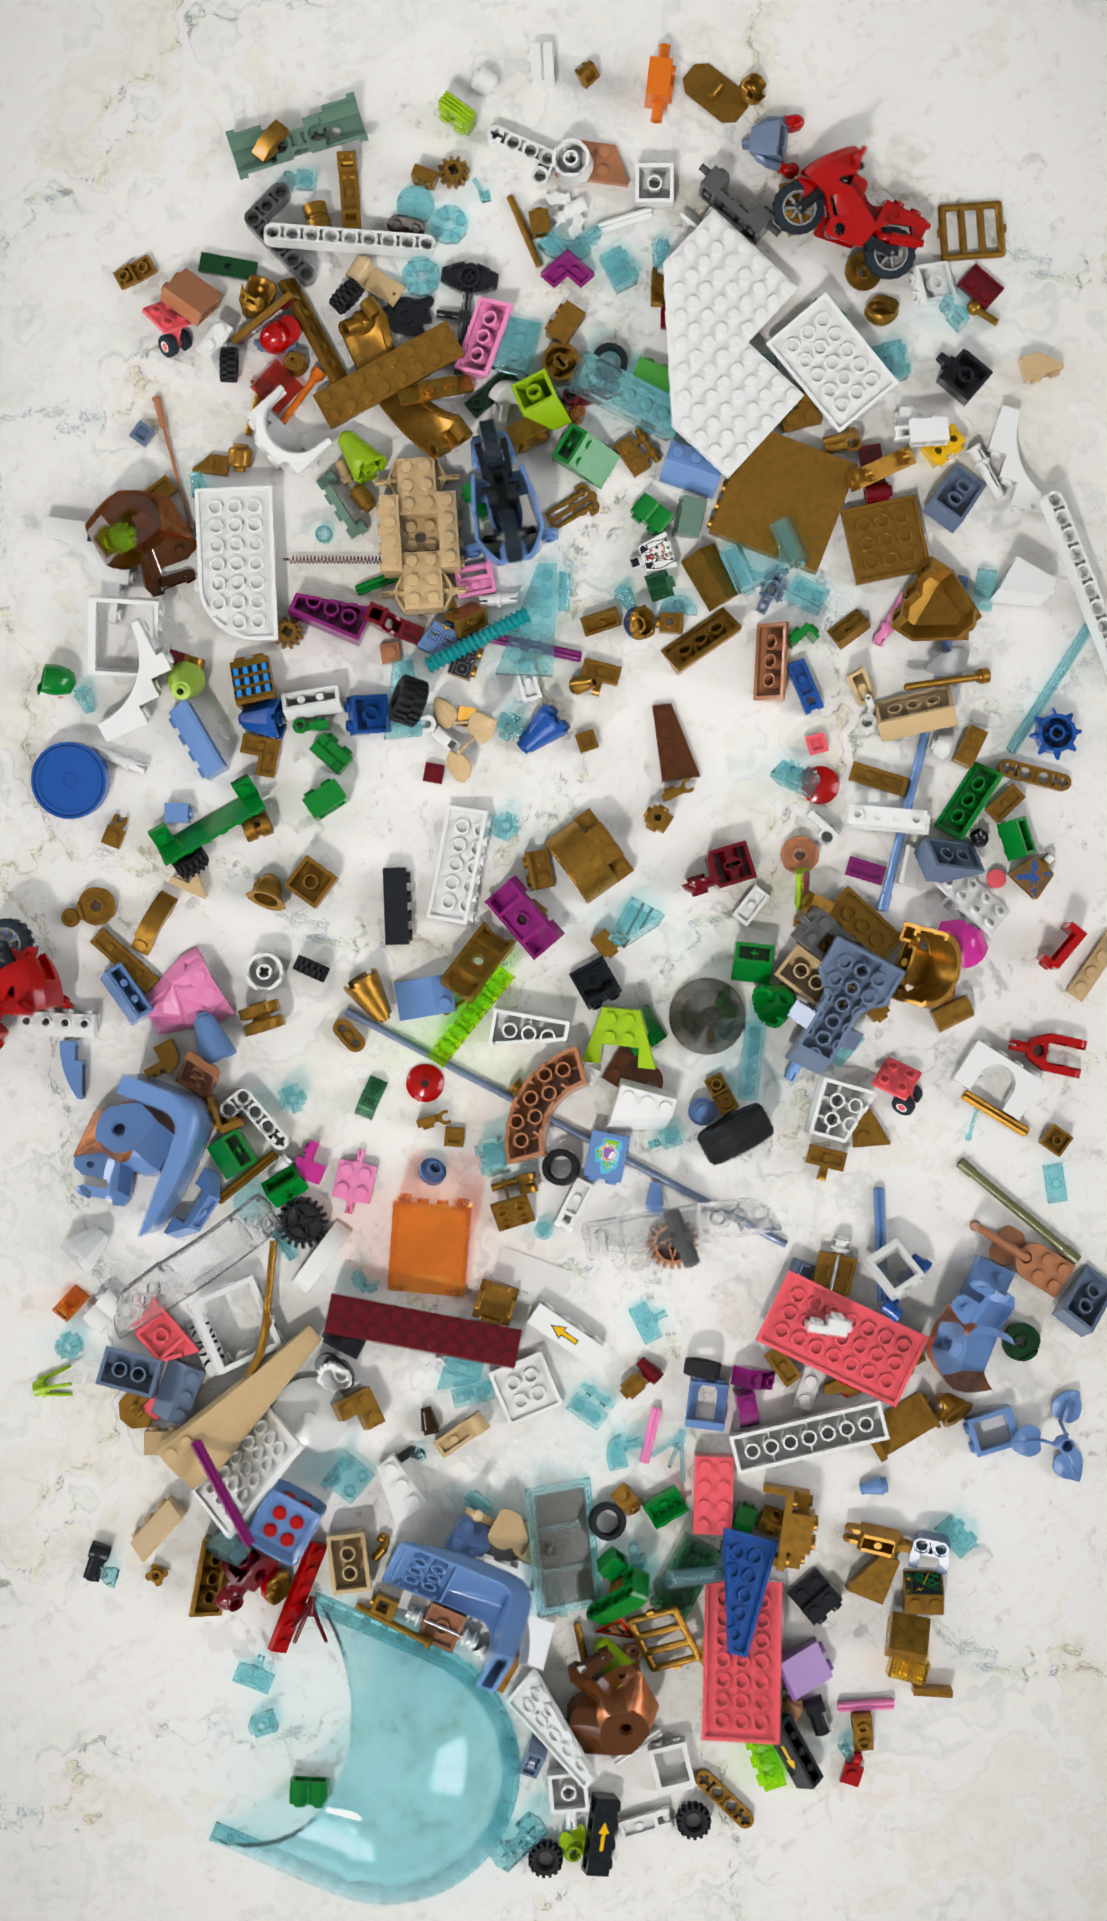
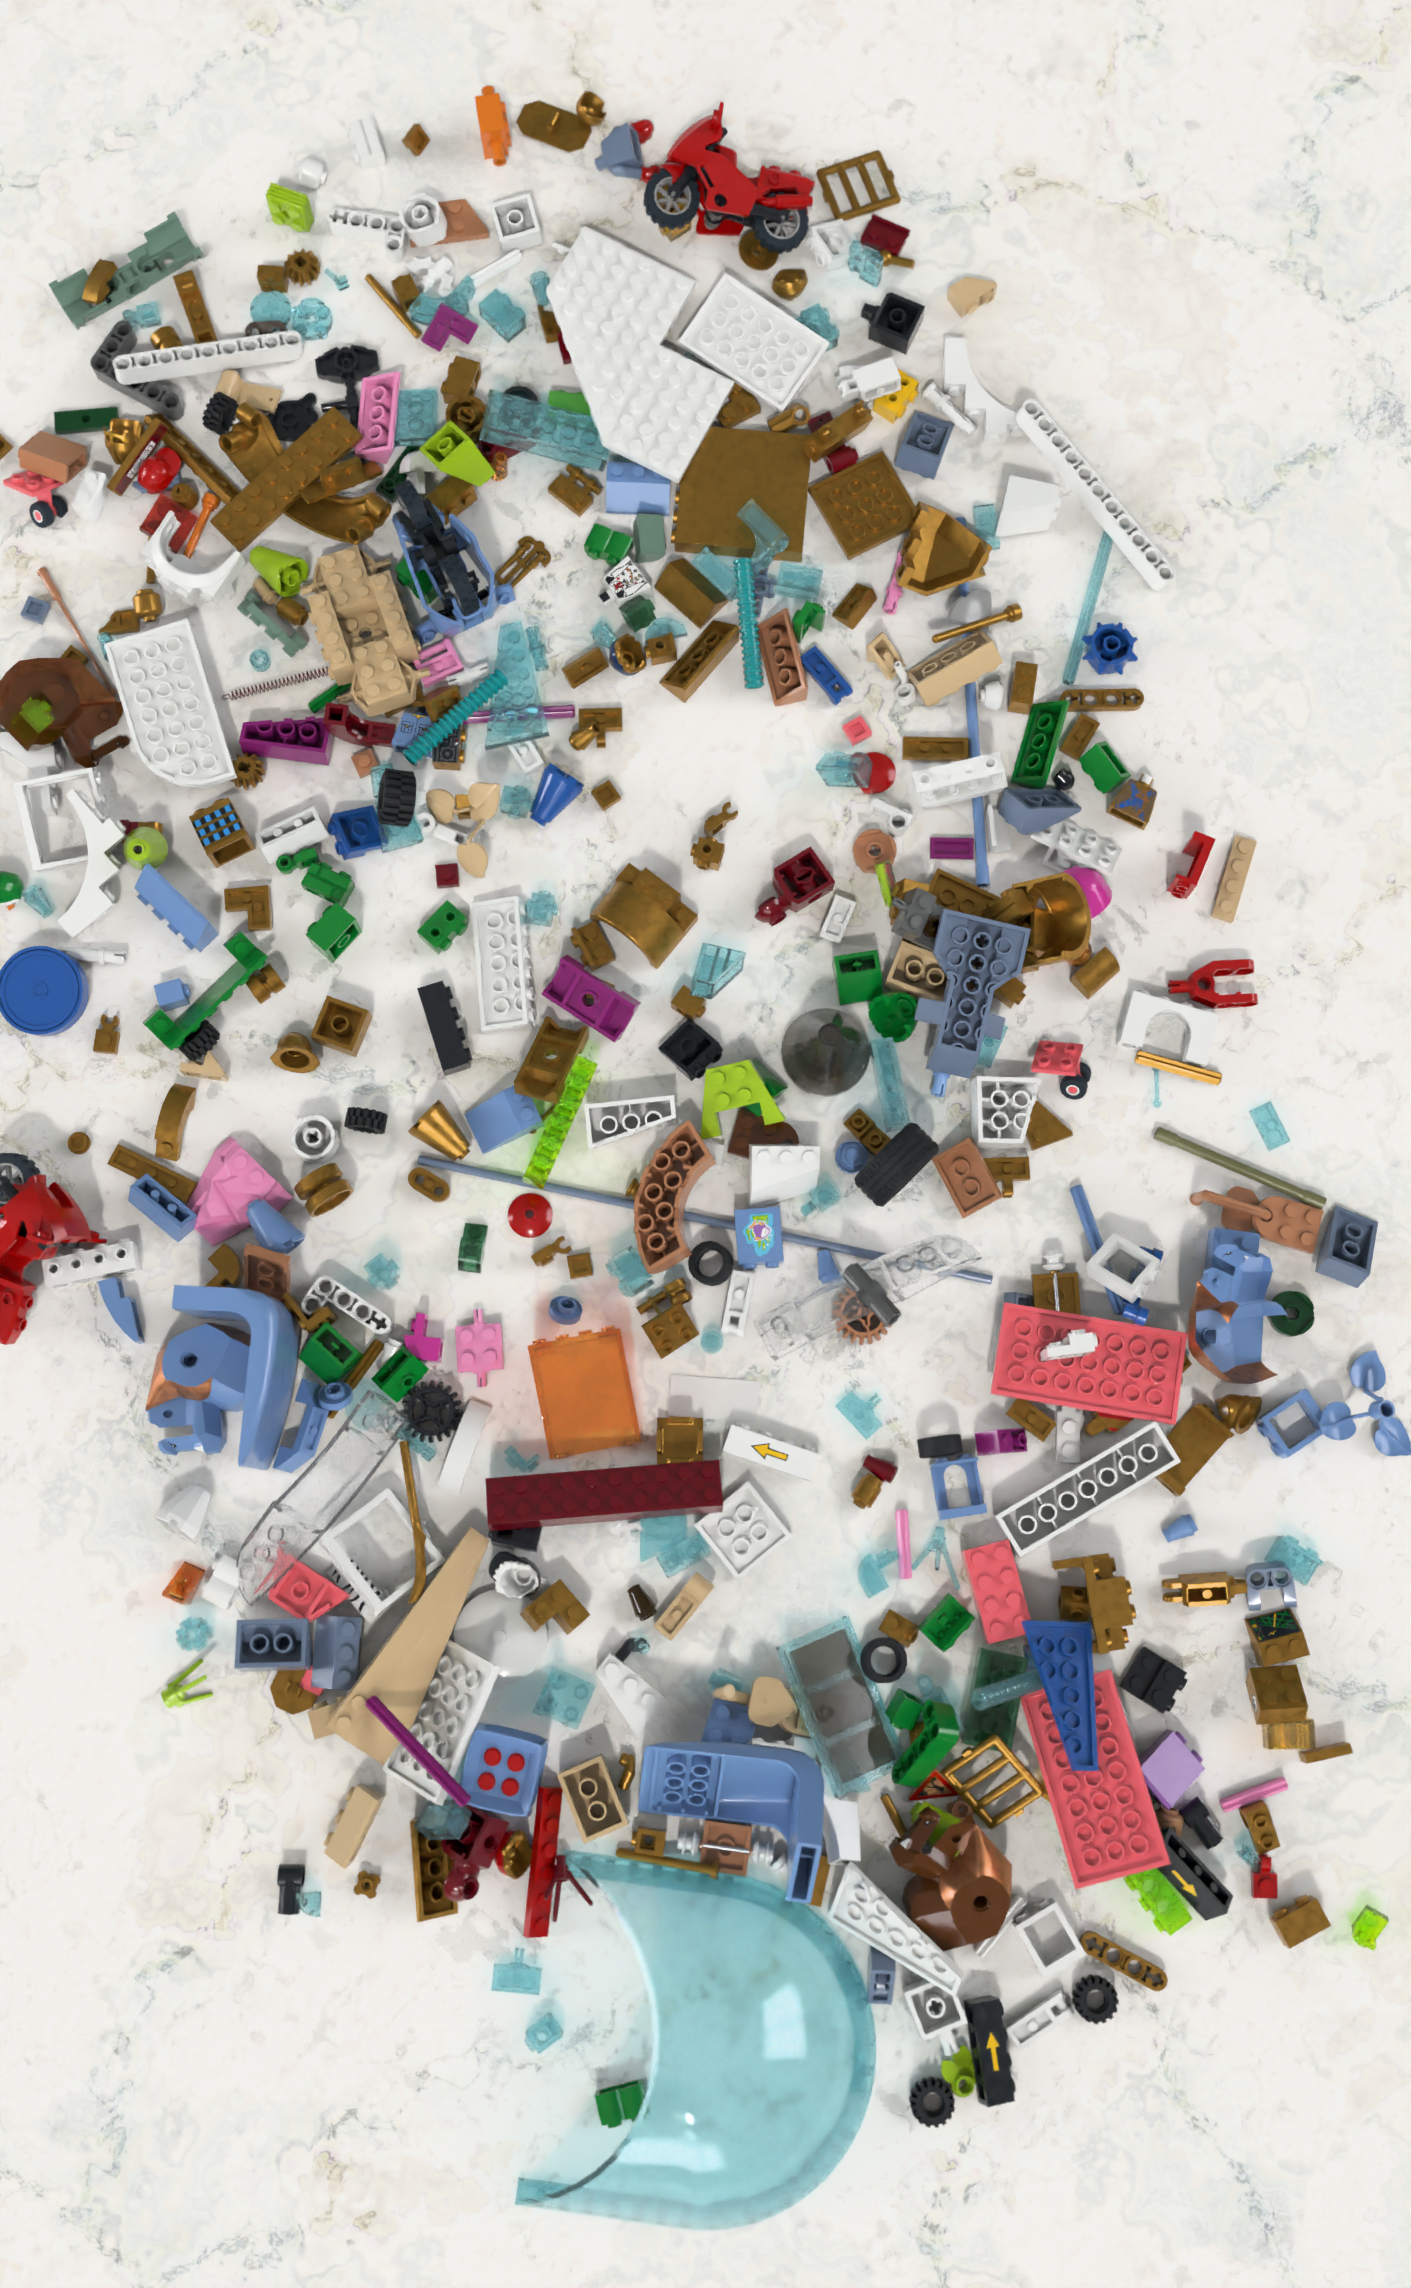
camera: 15 degrees left, 10 degrees down
(90, 915) = (93, 1118): pearl gold plate -> none
(228, 1190) = (335, 1396): none -> medium blue plate
(229, 364) = (111, 513): black tyre -> none
(264, 718) = (243, 866): blue cone -> none
(414, 285) = (300, 387): clear light blue plate -> none
(418, 819) = (443, 927): none -> green brick
(509, 1852) = (887, 2106): clear light blue arch -> none
(585, 456) = (519, 505): slope -> none
(586, 1410) = (821, 1536): clear light blue plate -> none
(673, 751) = (701, 777): reddish brown wing -> none
(713, 191) = (631, 230): dark grey brick -> none
(745, 1516) = (1043, 1606): green brick -> none
(746, 1407) = (1005, 1478): magenta slope -> none
(750, 625) = (748, 623): none -> teal piece
(791, 1157) = (967, 1177): none -> nougat plate
(869, 1809) = (1299, 1920): none -> pearl gold brick
(874, 1578) = (1215, 1636): pearl gold slope -> none
(893, 945) = (1010, 908): none -> pearl gold brick
(921, 1828) = (1368, 1927): none -> clear neon green bracket
(996, 878) = (1095, 818): coral tile -> none
(1055, 1140) = (1254, 1077): pearl gold piece -> none

